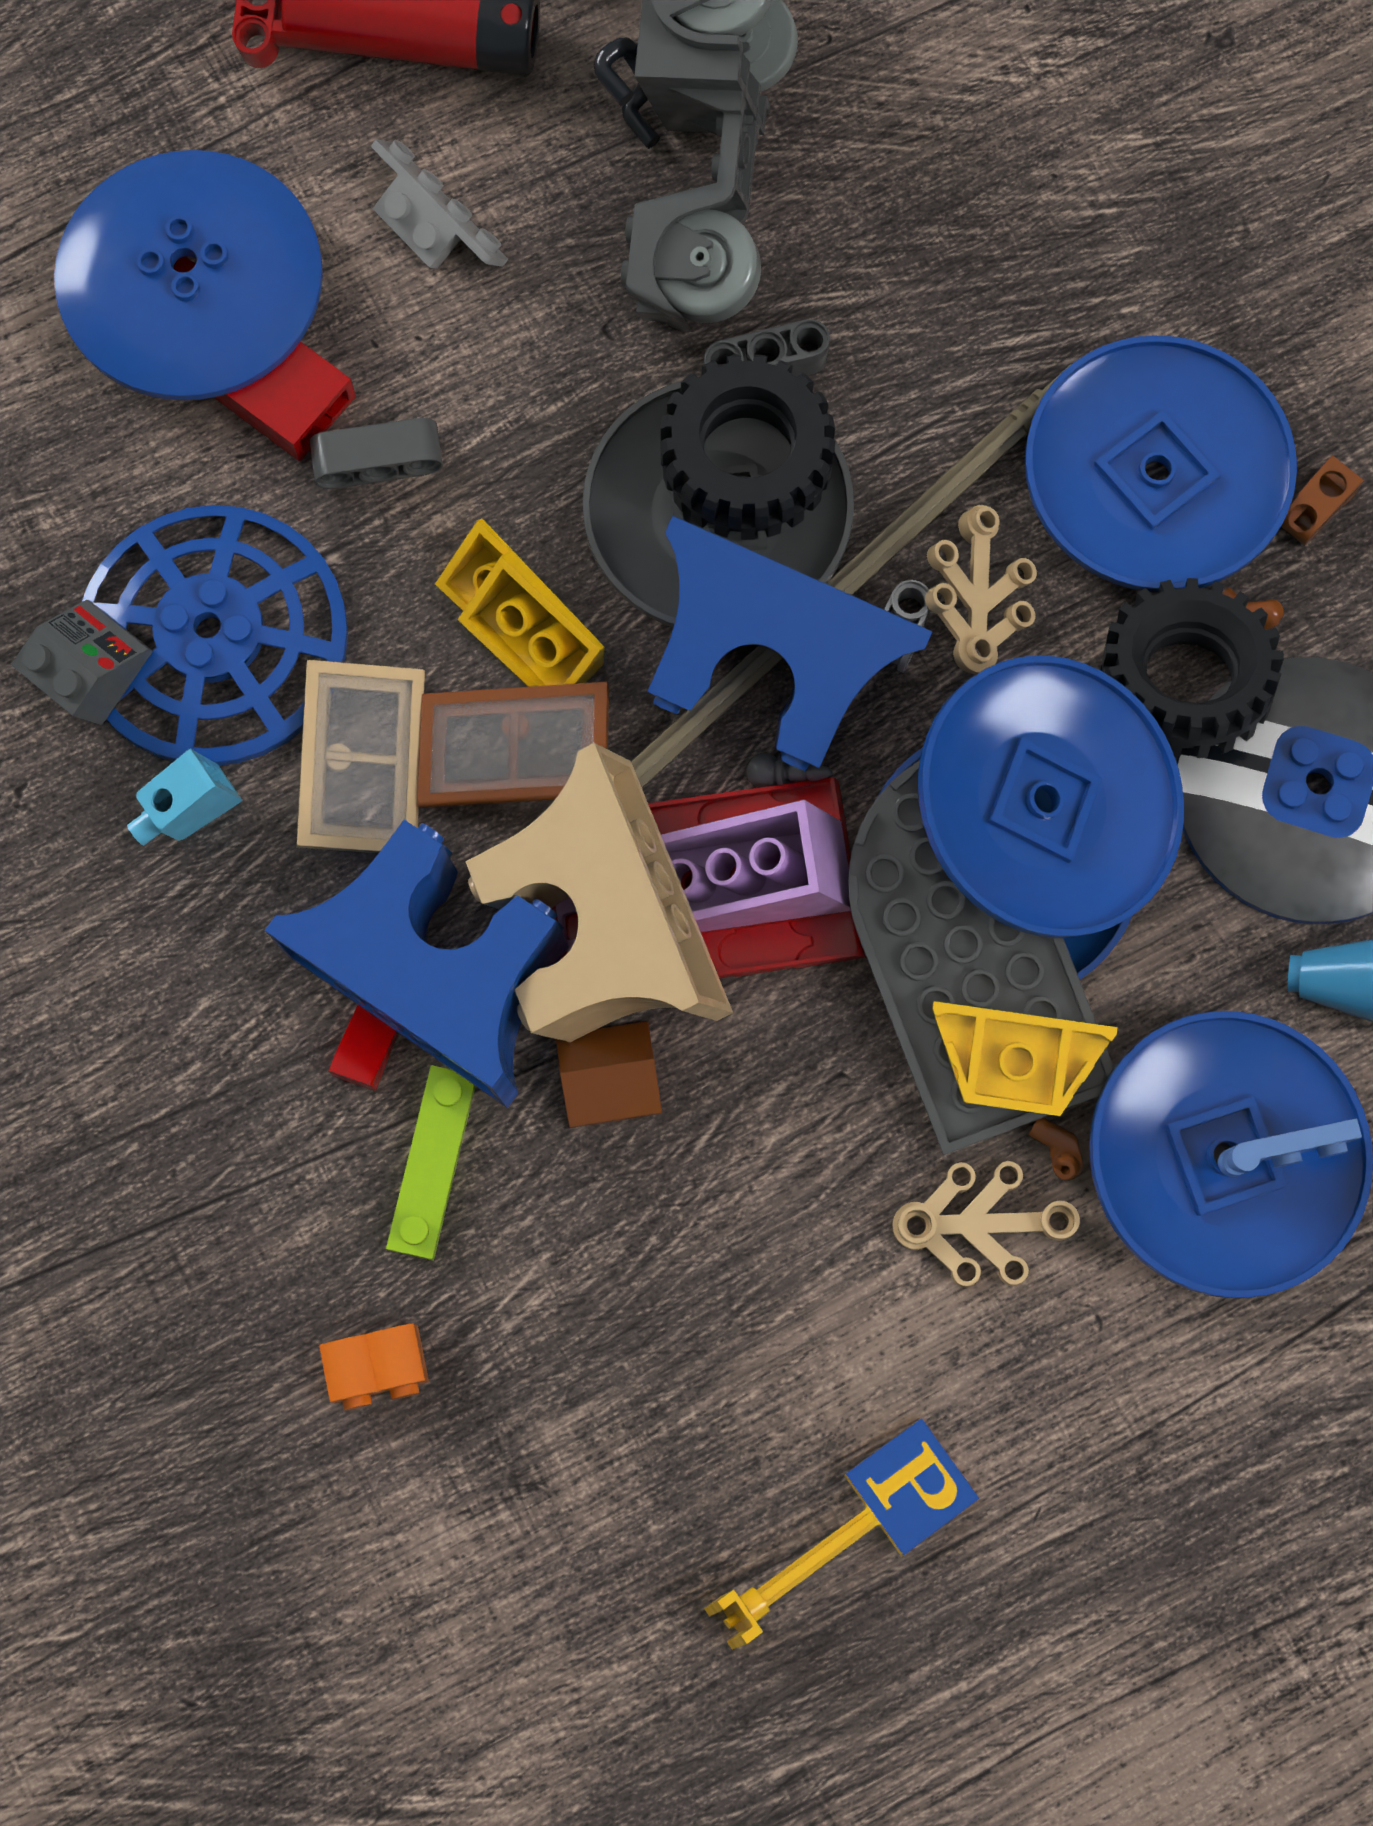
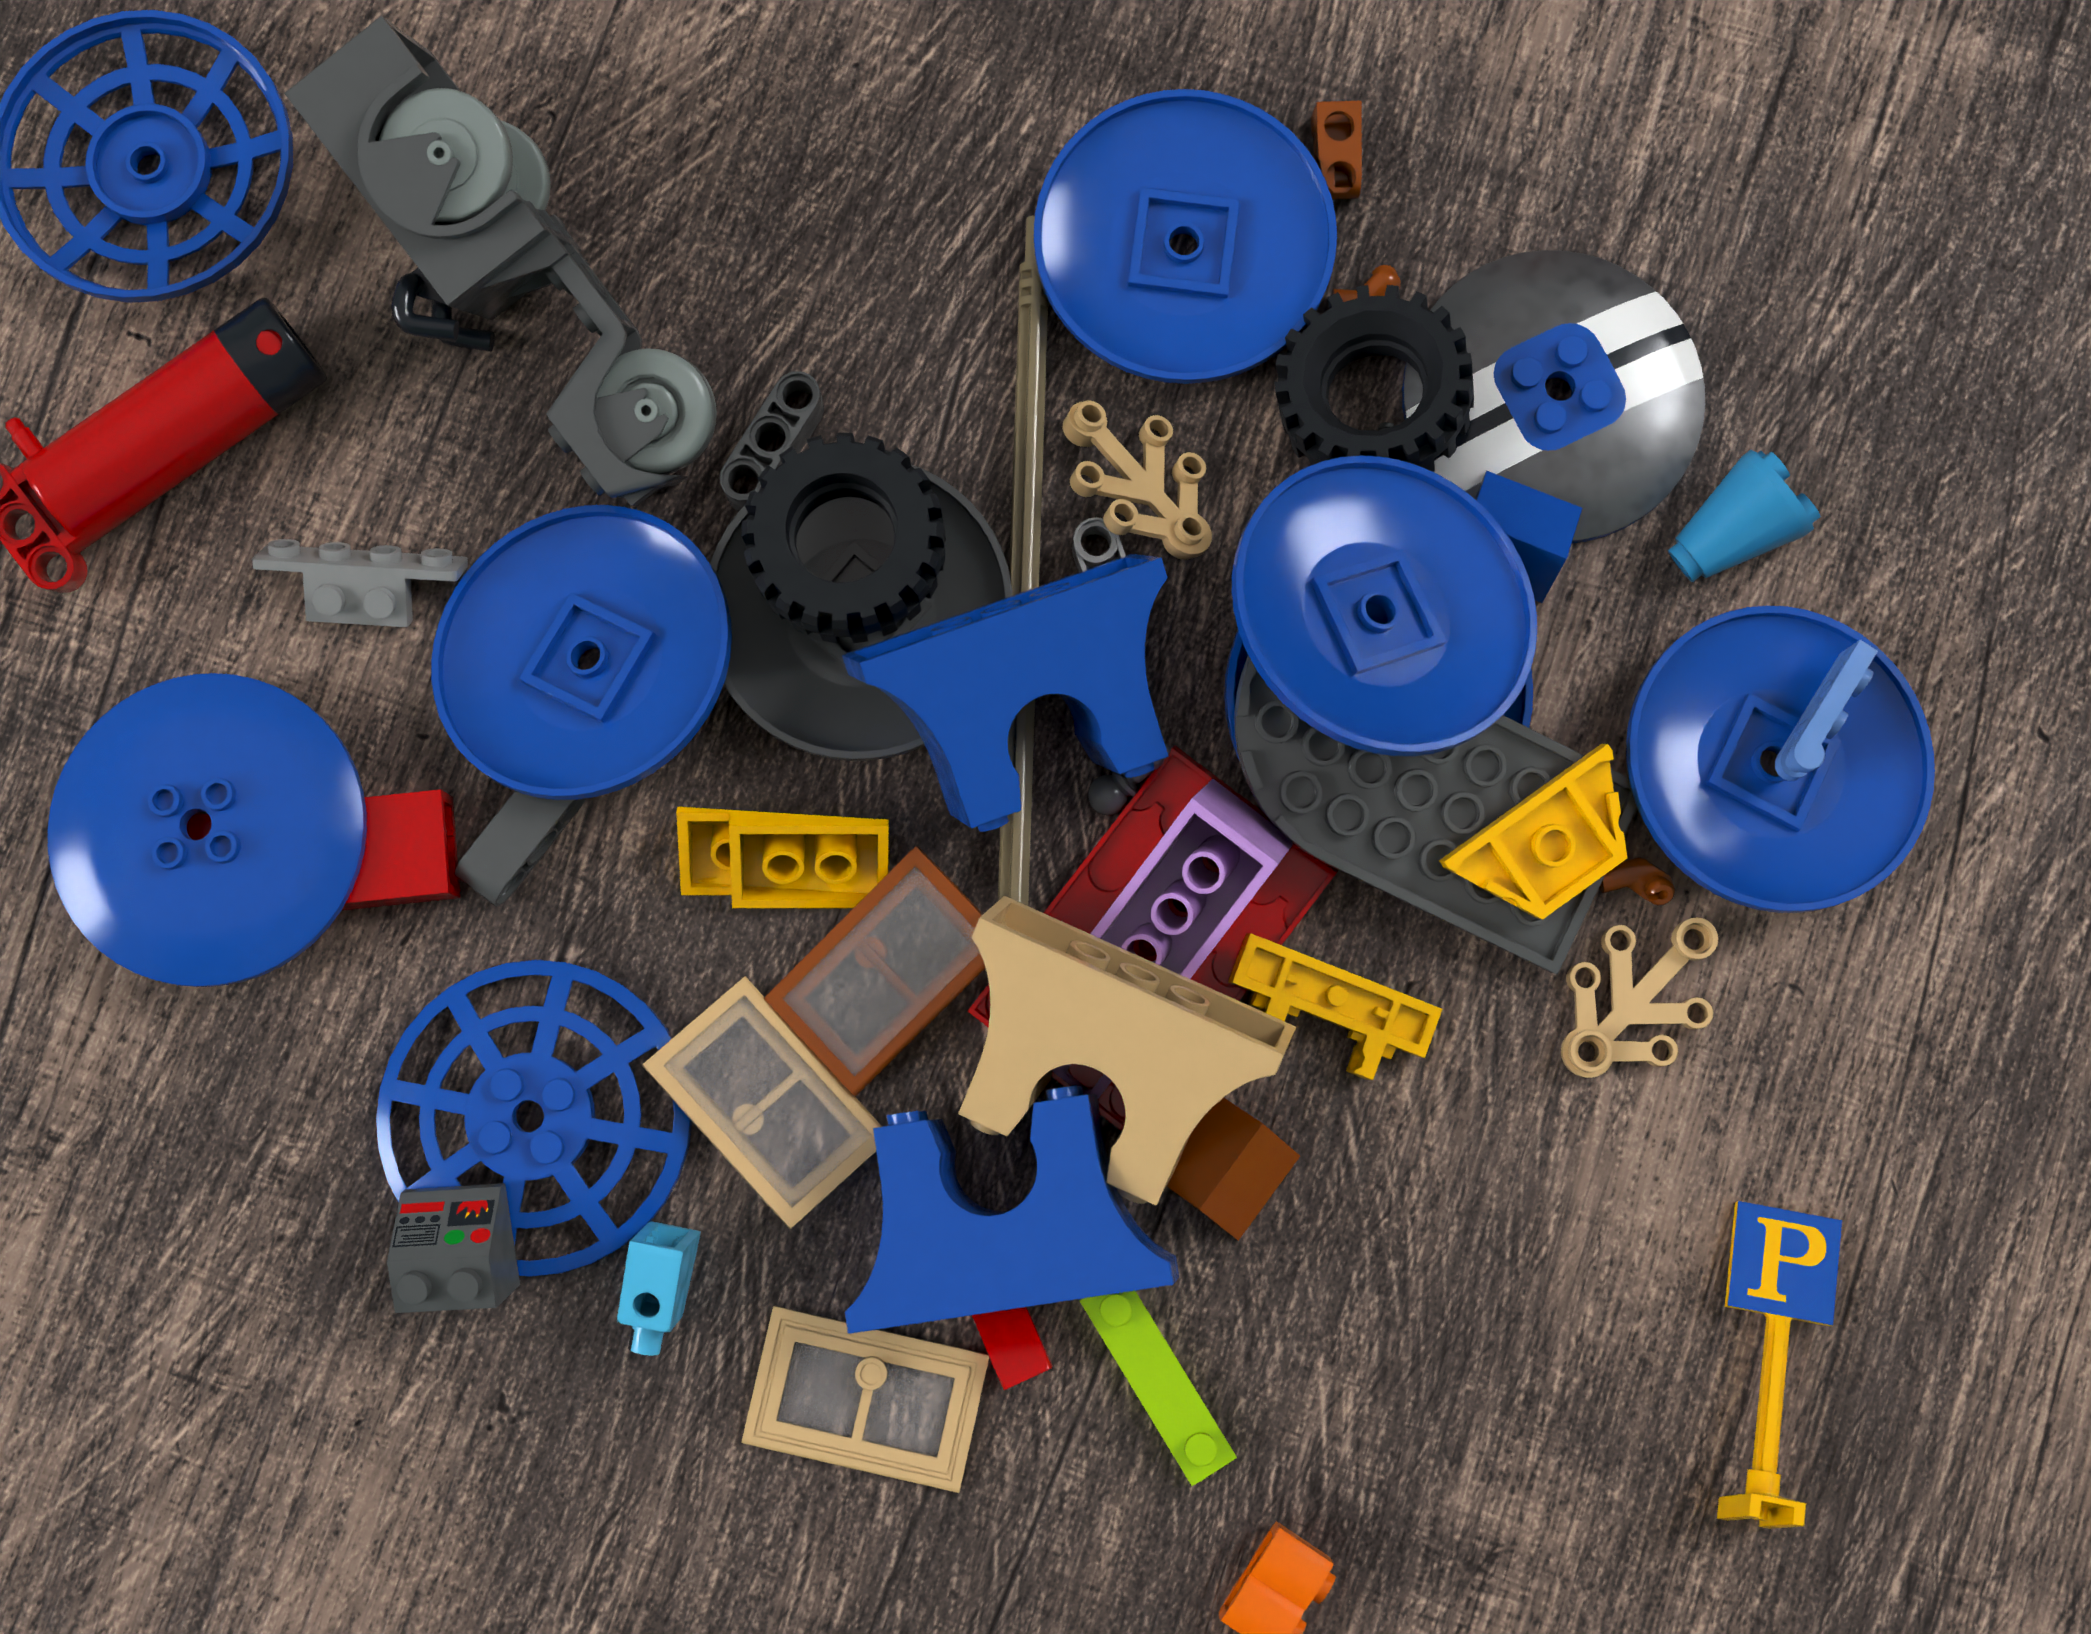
camera: 45 degrees left, 5 degrees up
(240, 999) = (866, 1399): none -> tan door
(507, 325) = (528, 613): none -> blue dish
(798, 1065) = (1373, 1013): none -> yellow hinge
(1208, 854) = (1536, 525): none -> blue slope

